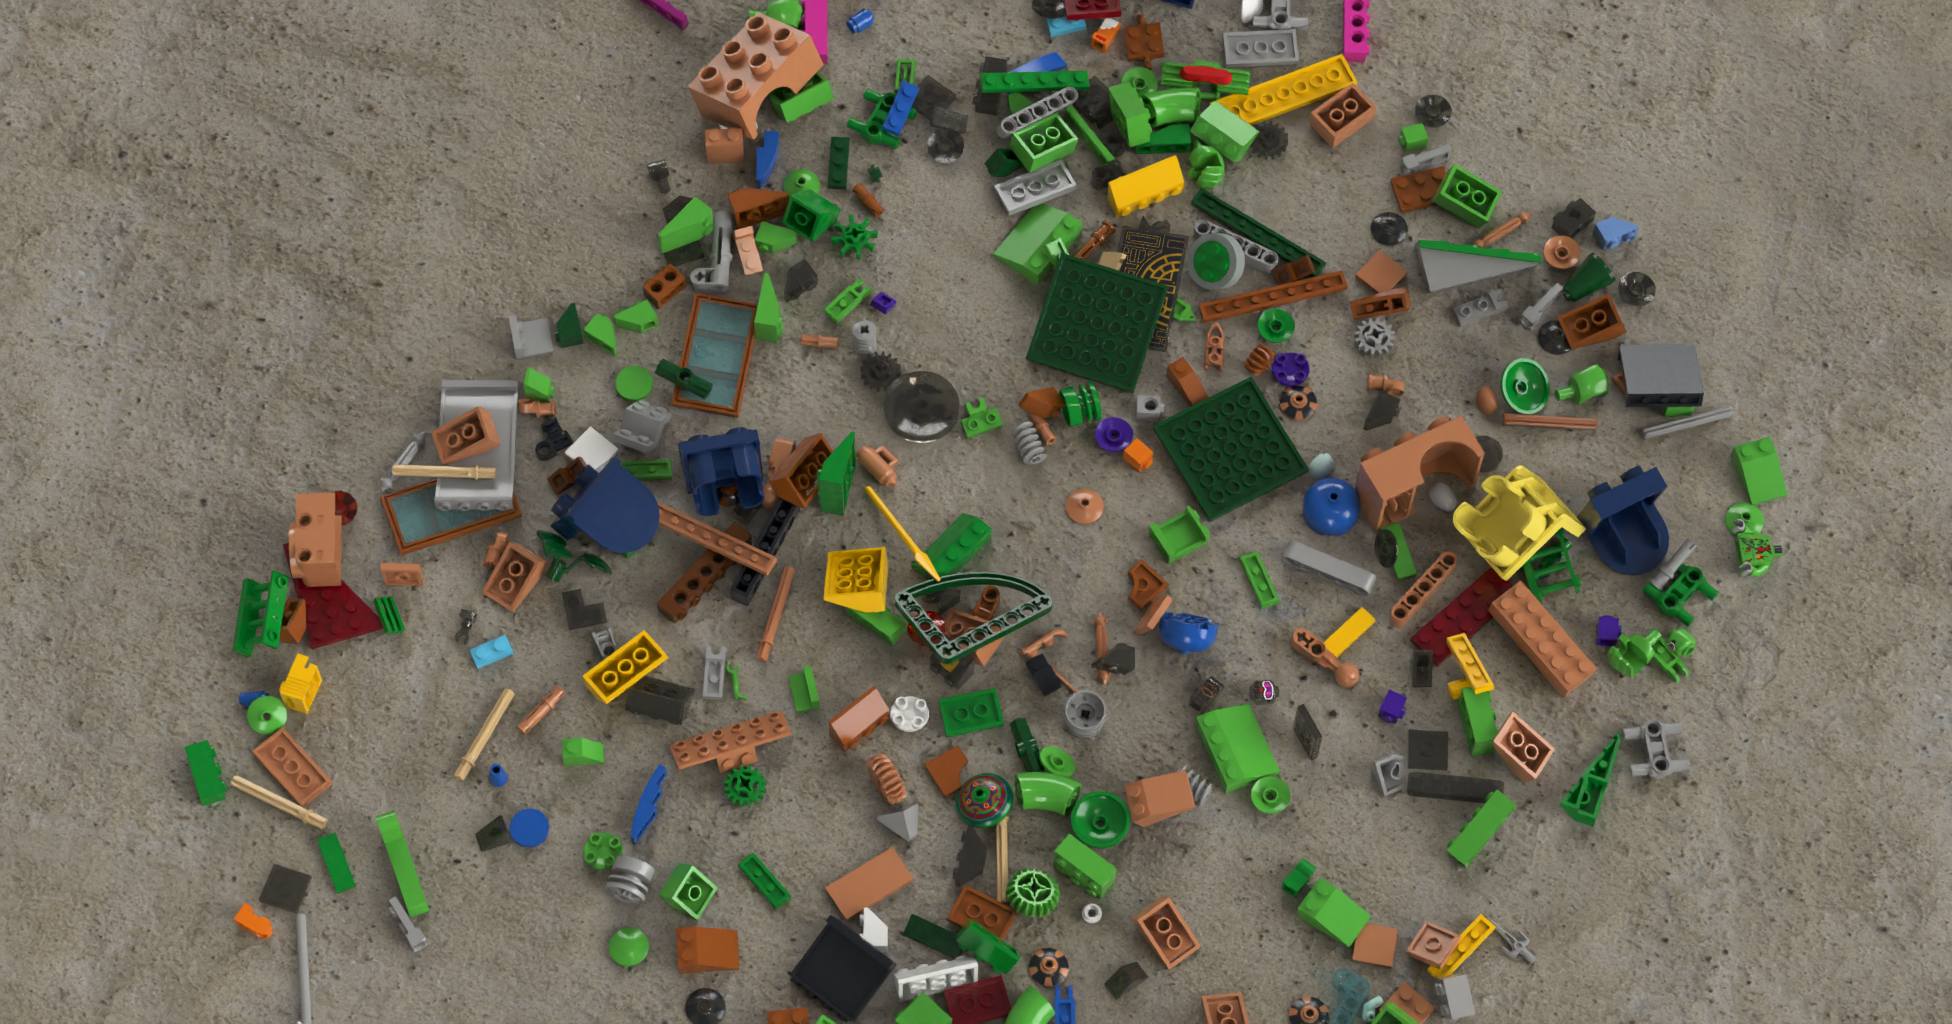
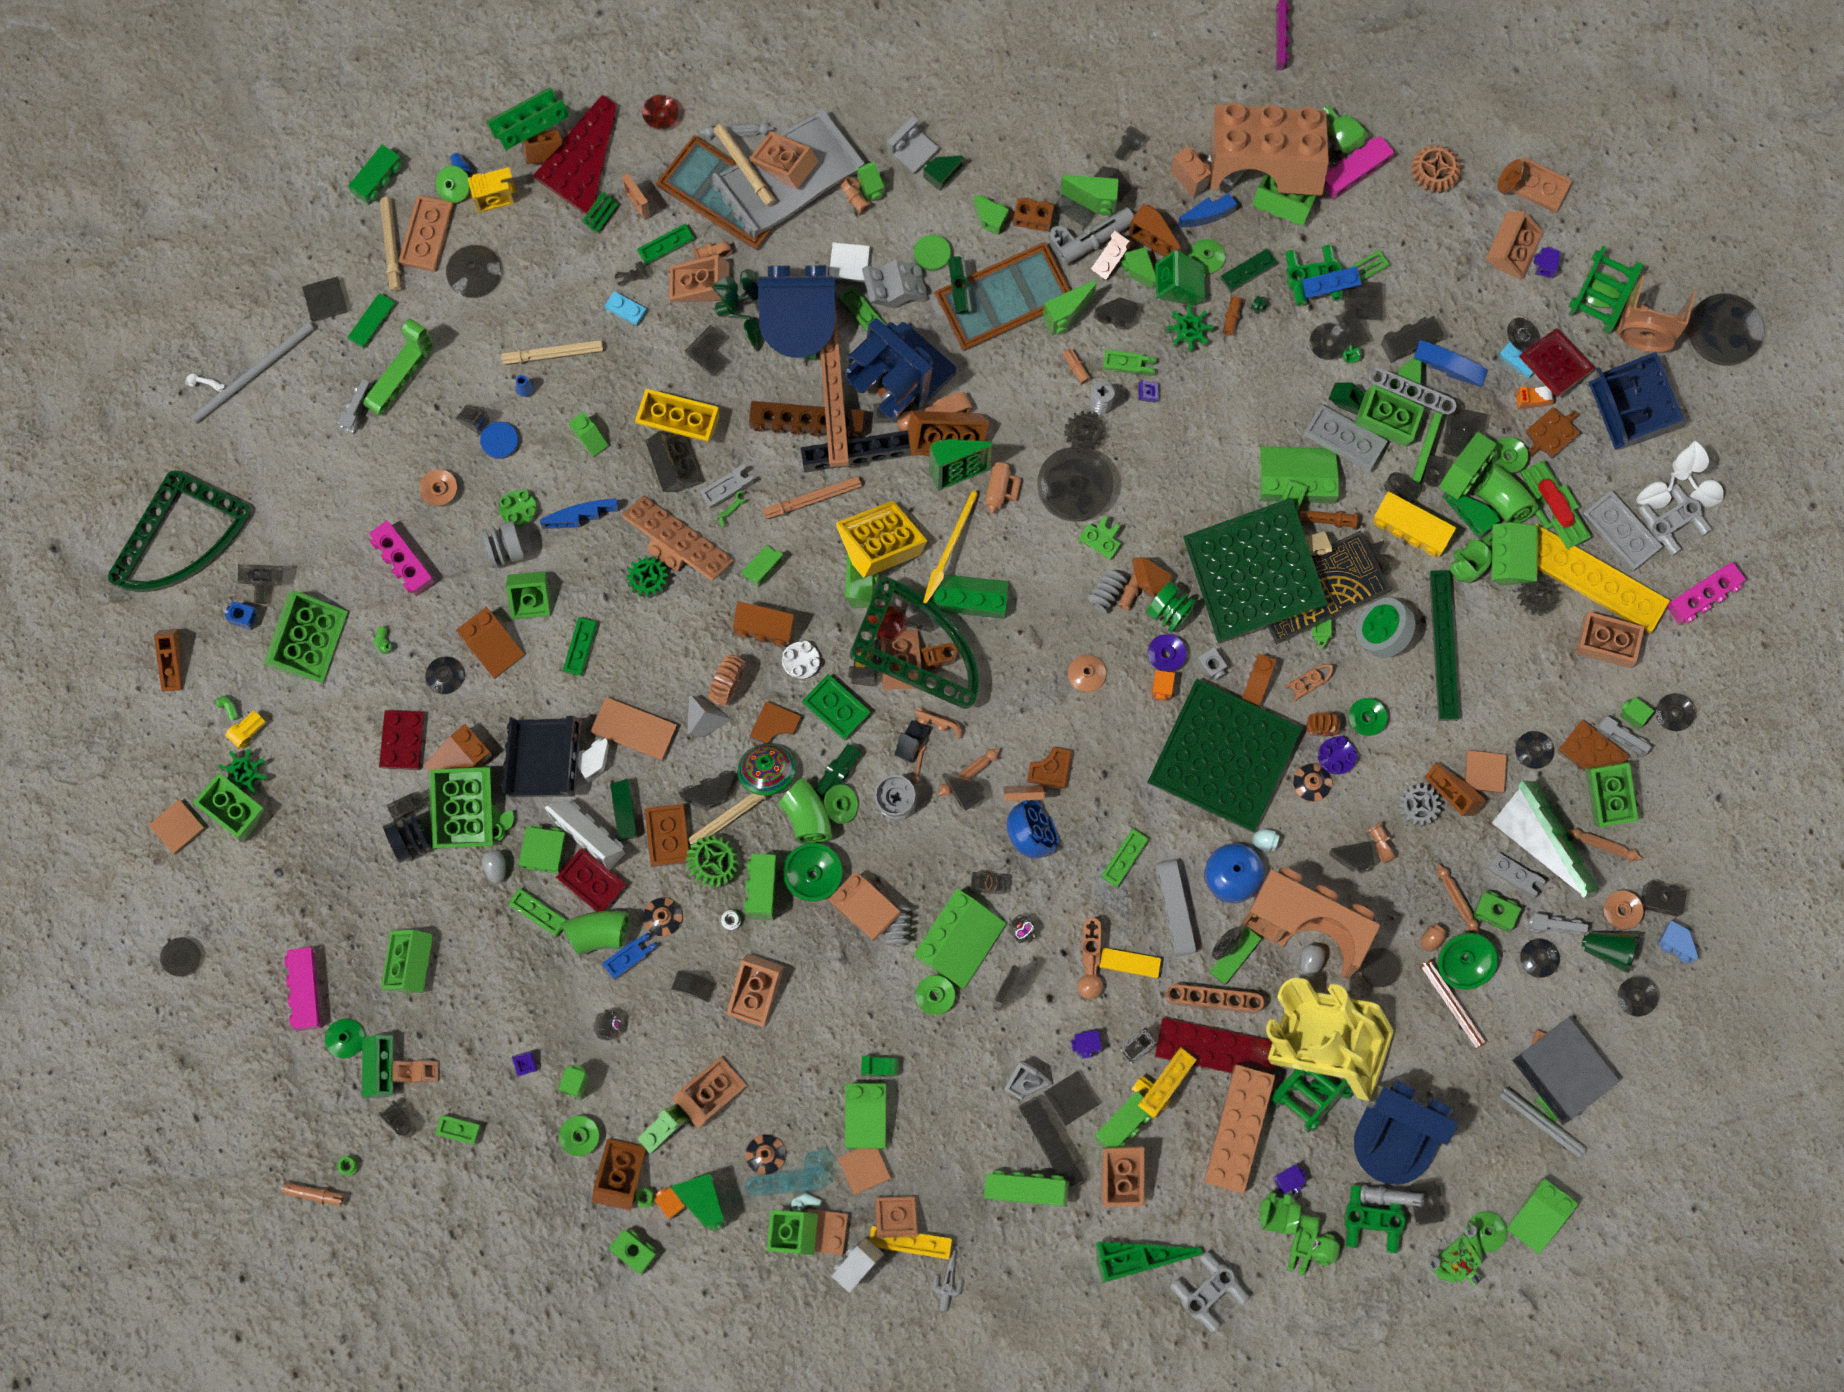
camera: 55 degrees right, 10 degrees up
(250, 922) = (279, 295): orange leg -> none
(316, 540) = (605, 107): nougat piece -> none
(358, 762) = (473, 281): none -> clear smoke dish
(459, 582) = (665, 244): none -> green tile
(534, 894) = (434, 480): none -> nougat dish
(547, 703) = (610, 380): nougat pin -> none
(557, 442) = (840, 229): black piece -> none
(564, 477) = (812, 256): reddish brown slope -> none
(565, 967) = (386, 533): none -> dark pink brick
(601, 333) = (957, 197): bright green slope -> none
(604, 642) = (692, 386): light grey piece -> none
(628, 946) = (453, 582): bright green dish -> none
(860, 21) = (1390, 197): blue brick -> none
(969, 137) = (1352, 355): none -> green piece
(987, 947) = (639, 857): green slope -> none
(1033, 81) = (1438, 369): green plate -> none
(1179, 535) = (1115, 766): bright green panel -> none
(1261, 253) = (1418, 644): light grey beam -> none
(1273, 296) = (1393, 696): dark orange plate -> none
(1294, 271) = (1429, 697): reddish brown slope -> none
(1470, 362) = (1458, 899): none -> nougat wheel
(1492, 348) = (1485, 912): none -> bright green brick
(1585, 384) = (1508, 1011): bright green piece -> none
(1592, 323) = (1574, 980): dark orange slope -> none
(1705, 545) = (1423, 1215): none -> clear smoke brick

